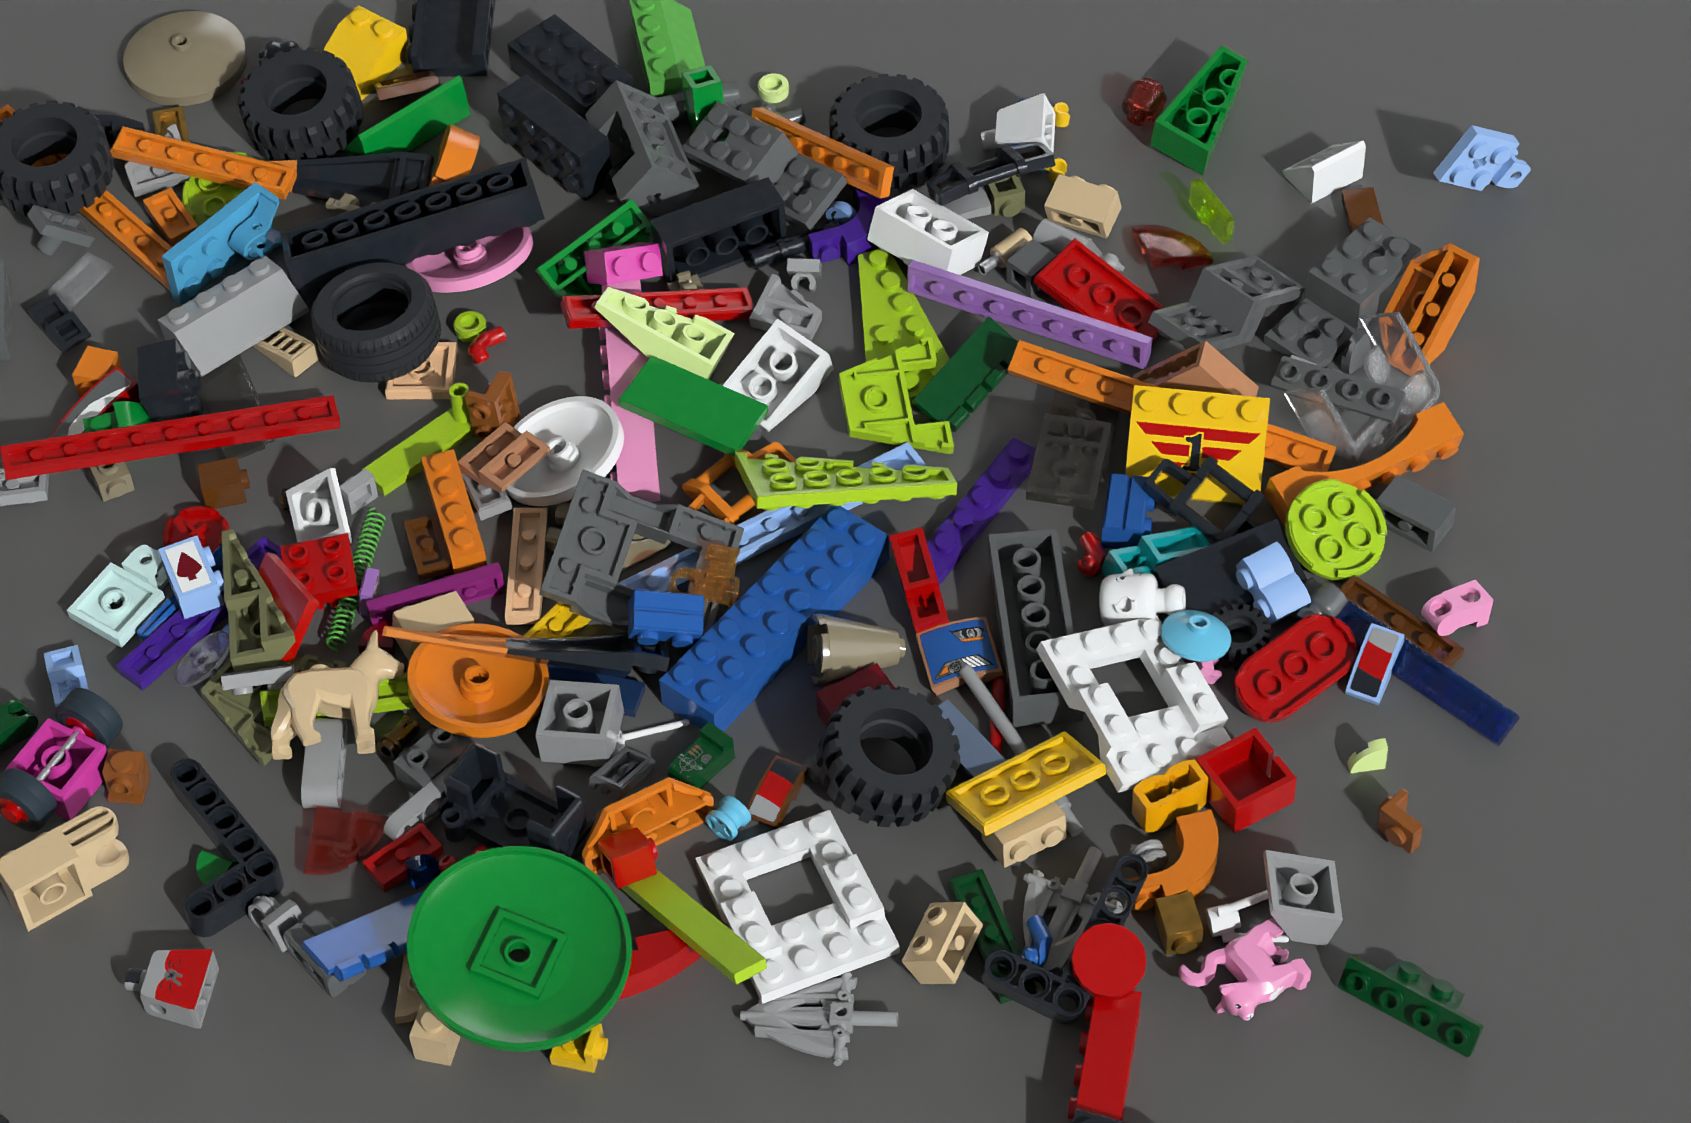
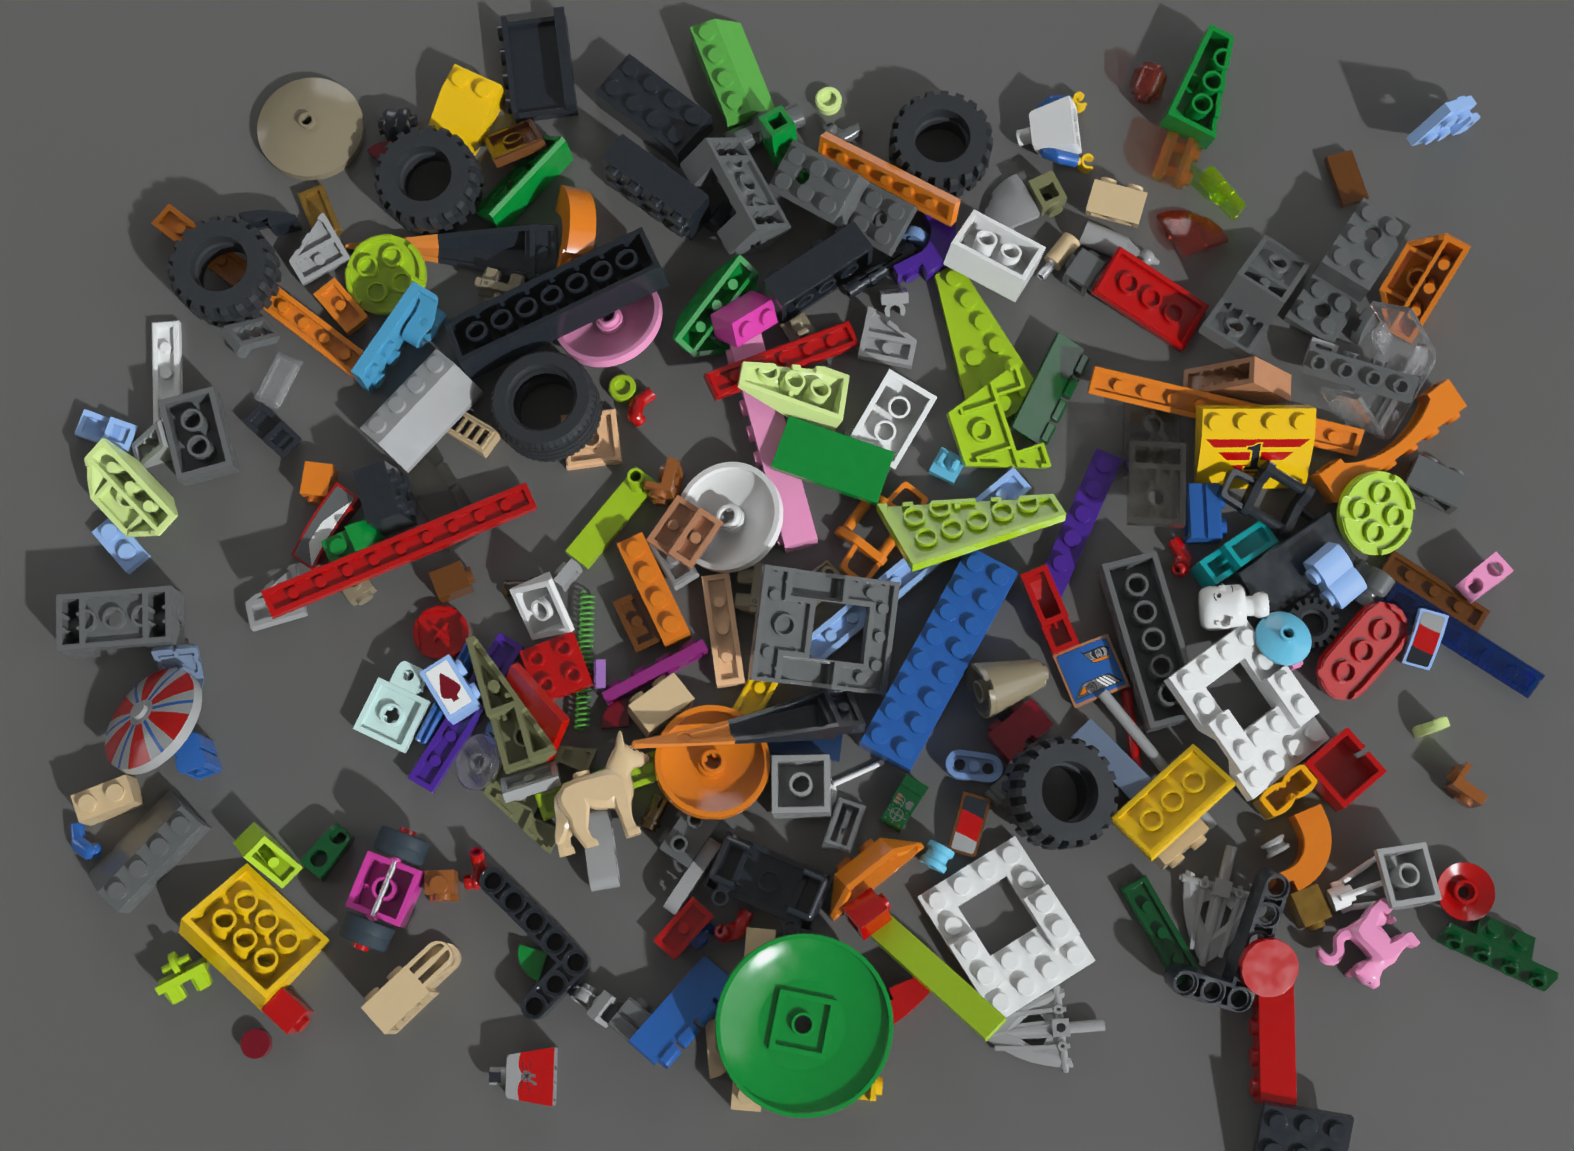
camera: 10 degrees left, 25 degrees up
(65, 672) = (369, 791): light blue slope -> none
(162, 780) = (479, 864): none -> red arm
(202, 162) = (358, 252): orange tile -> none
(341, 839) = (628, 916): clear red brick -> none
(665, 617) = (854, 684): blue brick -> none
(716, 584) = (887, 640): clear orange piece -> none
(796, 731) = (973, 766): none -> medium blue plate
(830, 438) = (946, 466): none -> medium azure tile
(942, 943) = (1128, 954): tan brick -> none
(1006, 163) = (1041, 163): black bar -> none
(1029, 314) = (1093, 328): medium lavender tile -> none
(1041, 941) = (1206, 944): blue arm -> none
(1169, 185) = (1181, 174): none -> clear orange brick
(1328, 170) = (1309, 134): white slope -> none
(1383, 918) = (1478, 887): none -> red dish

